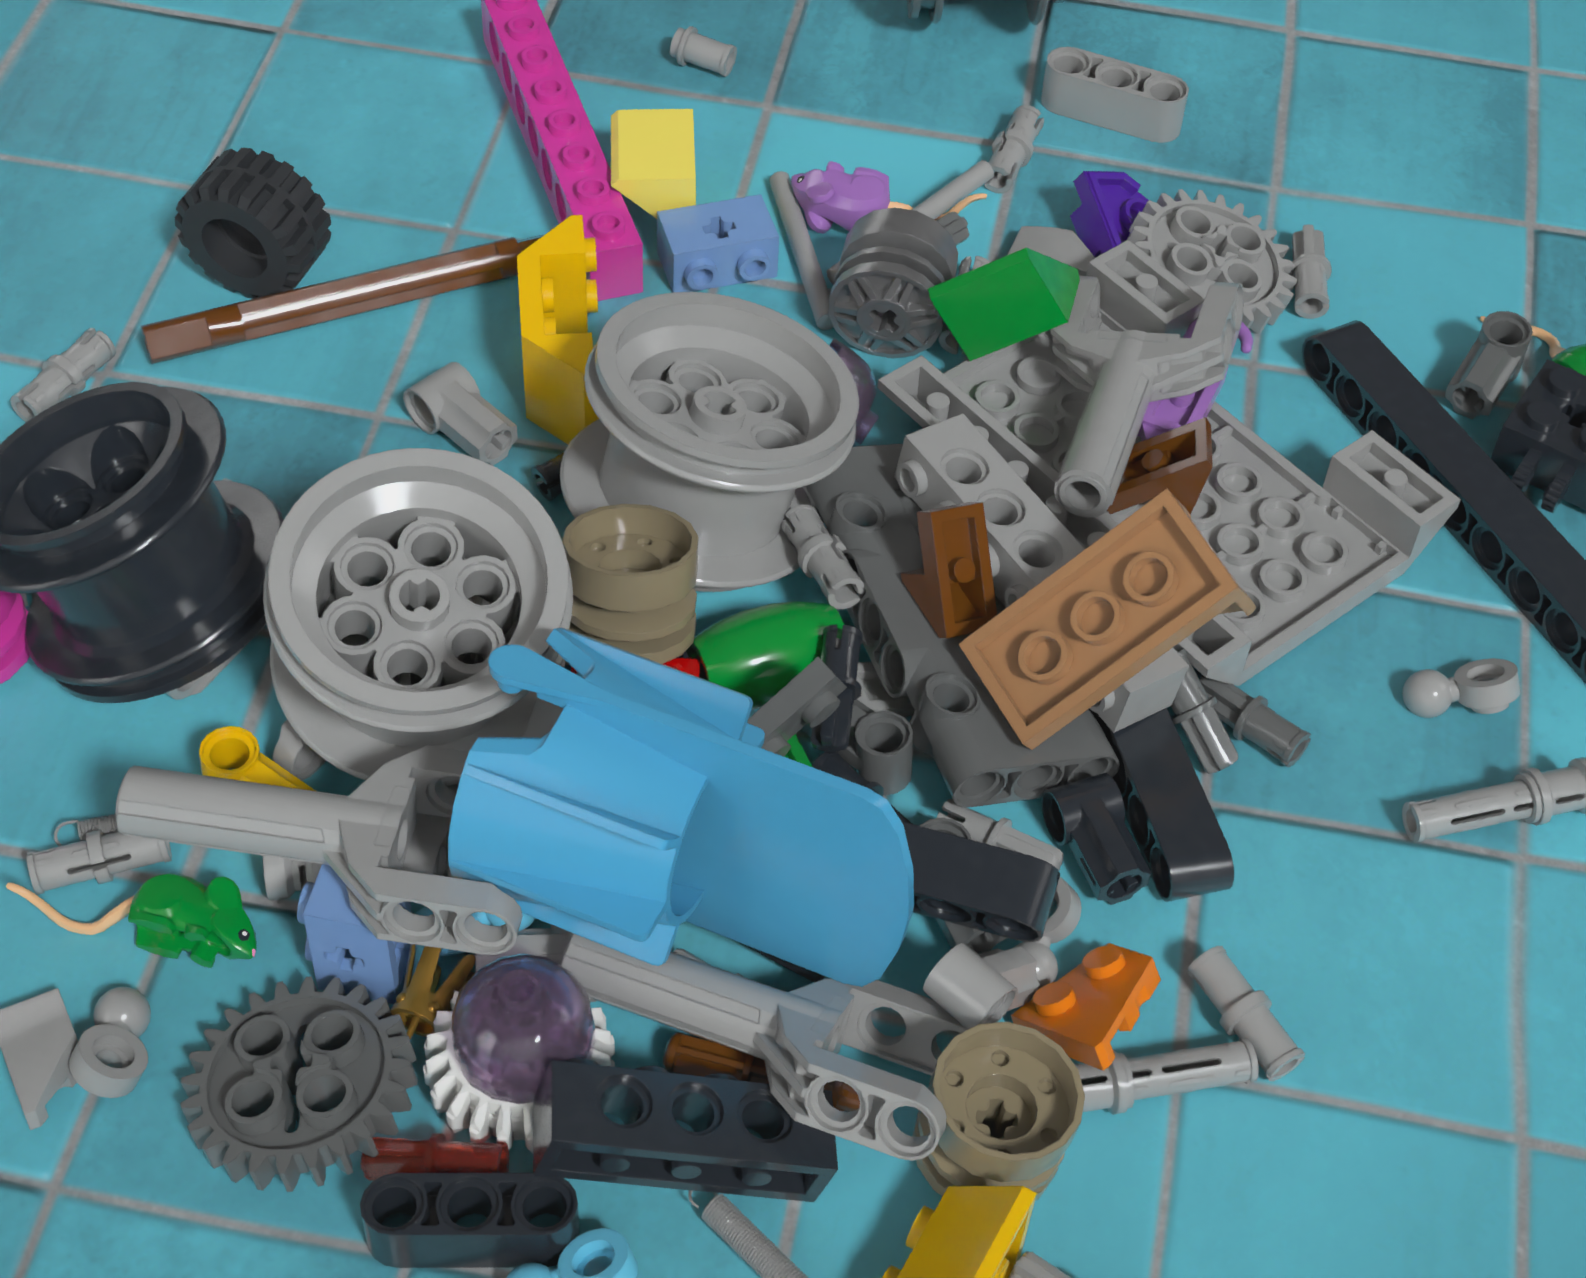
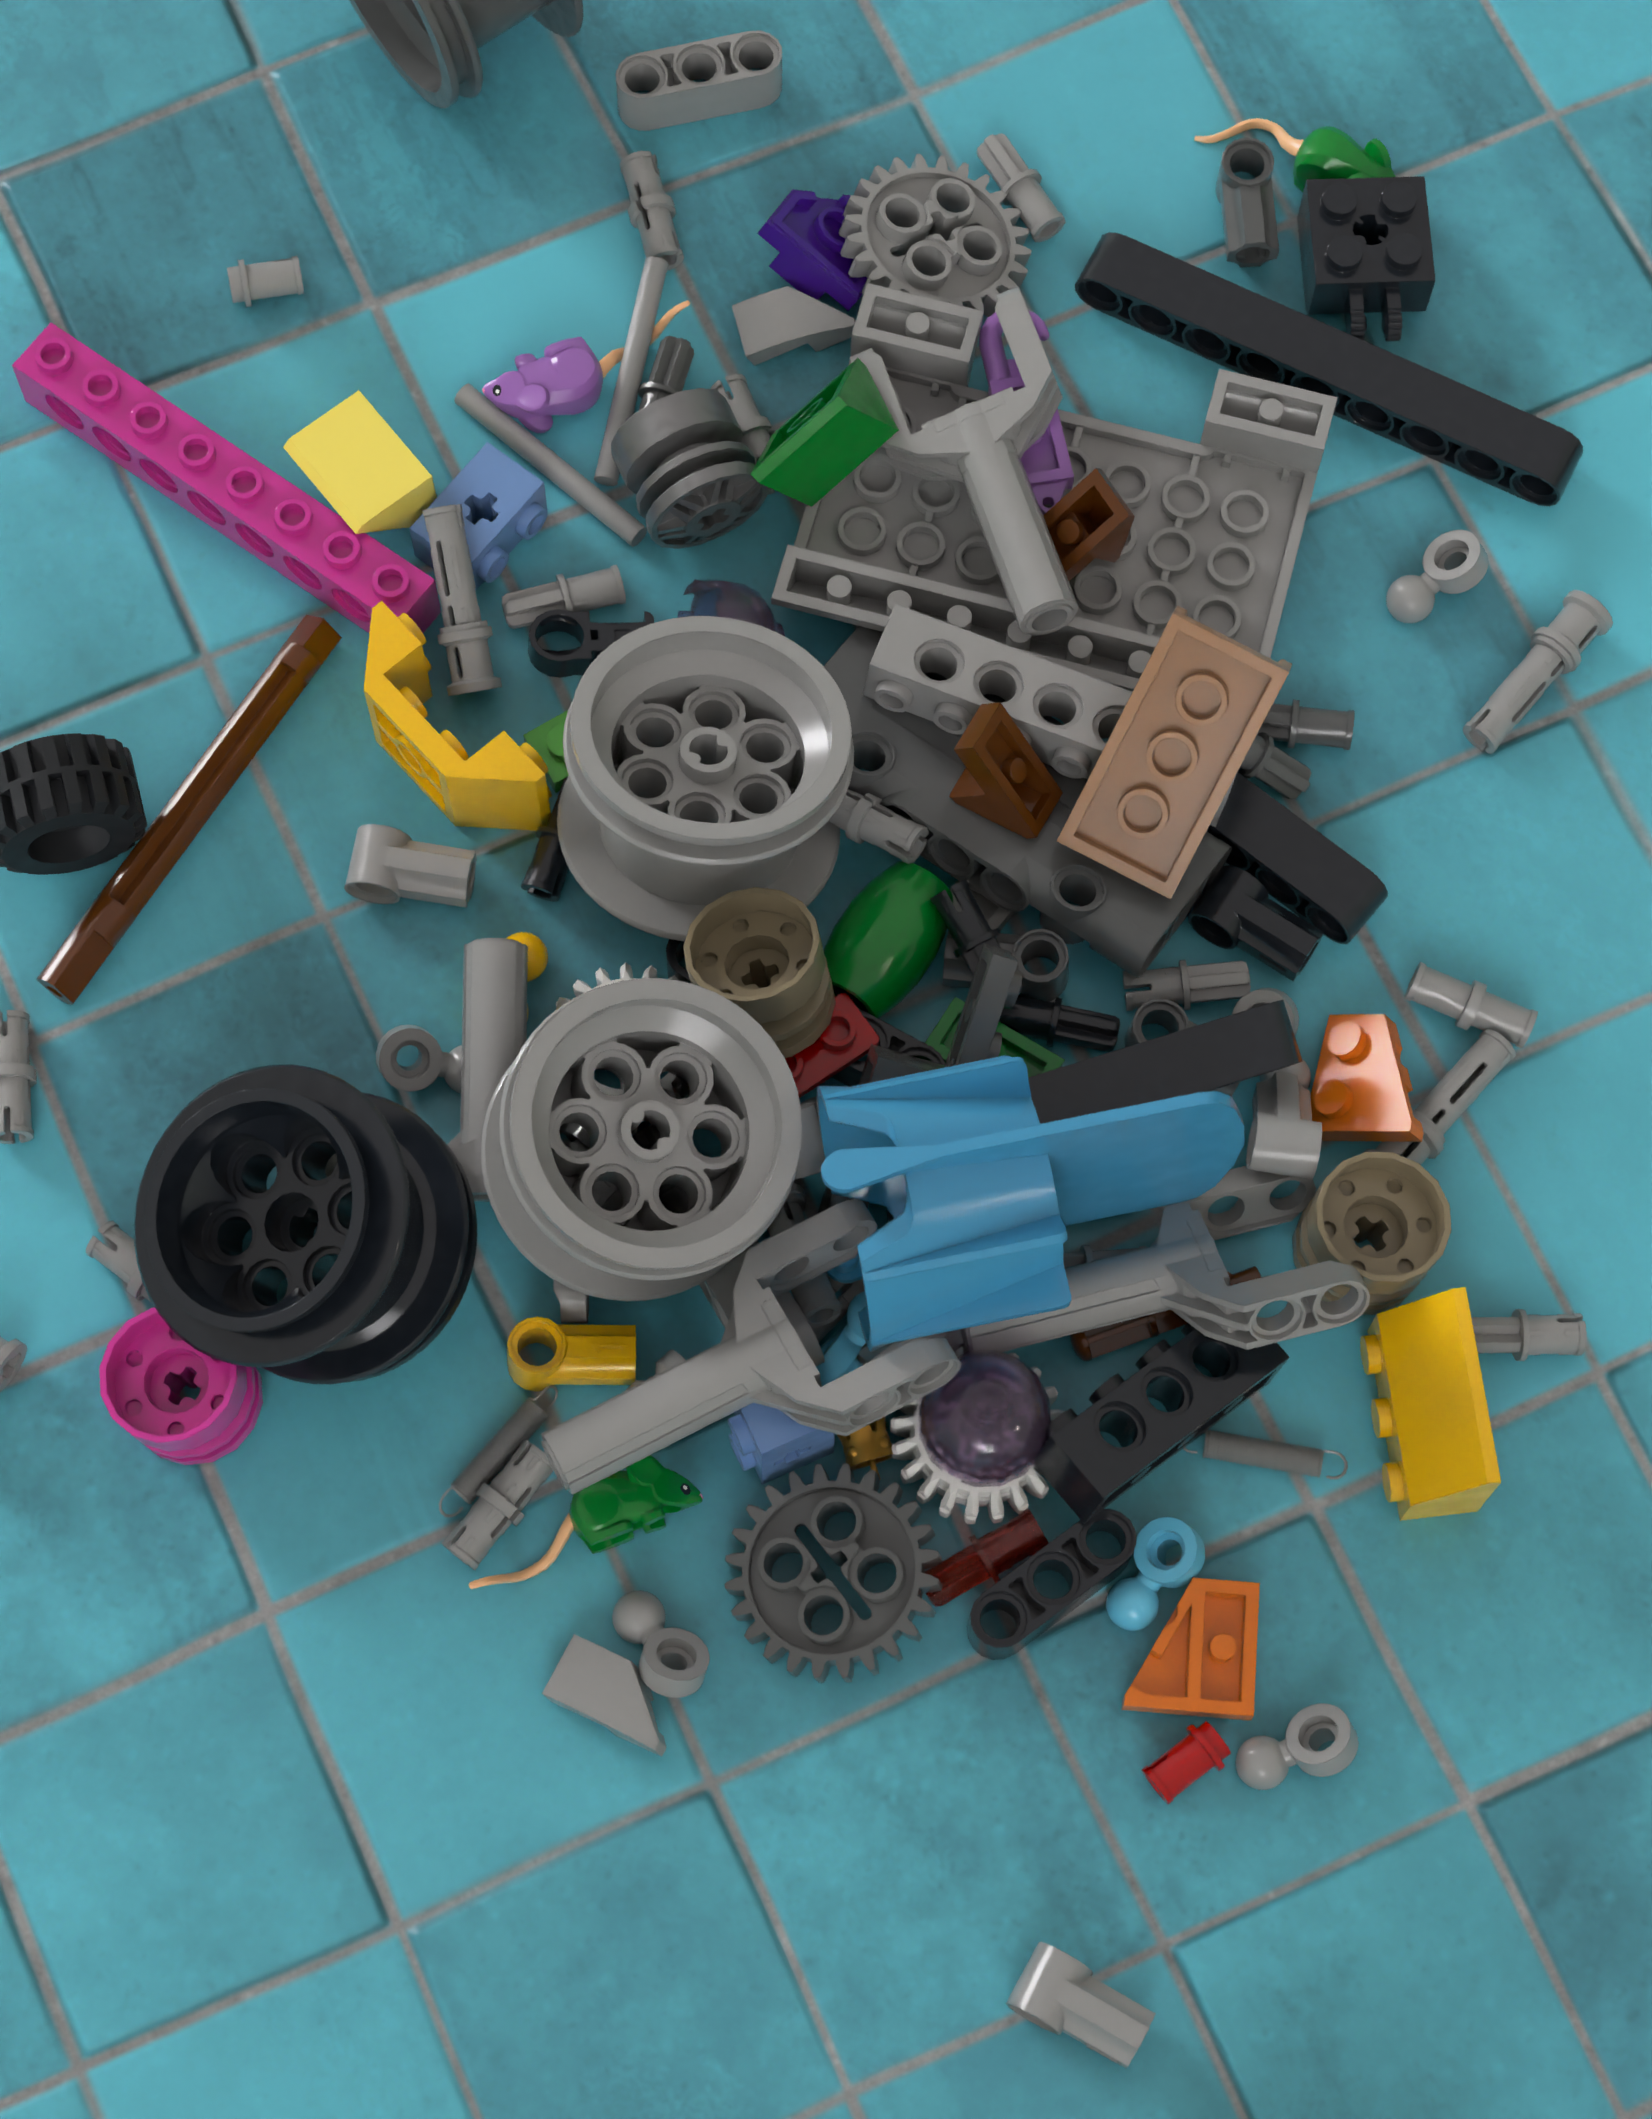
camera: 35 degrees left, 20 degrees up
(655, 252) = (463, 628): none -> light grey pin

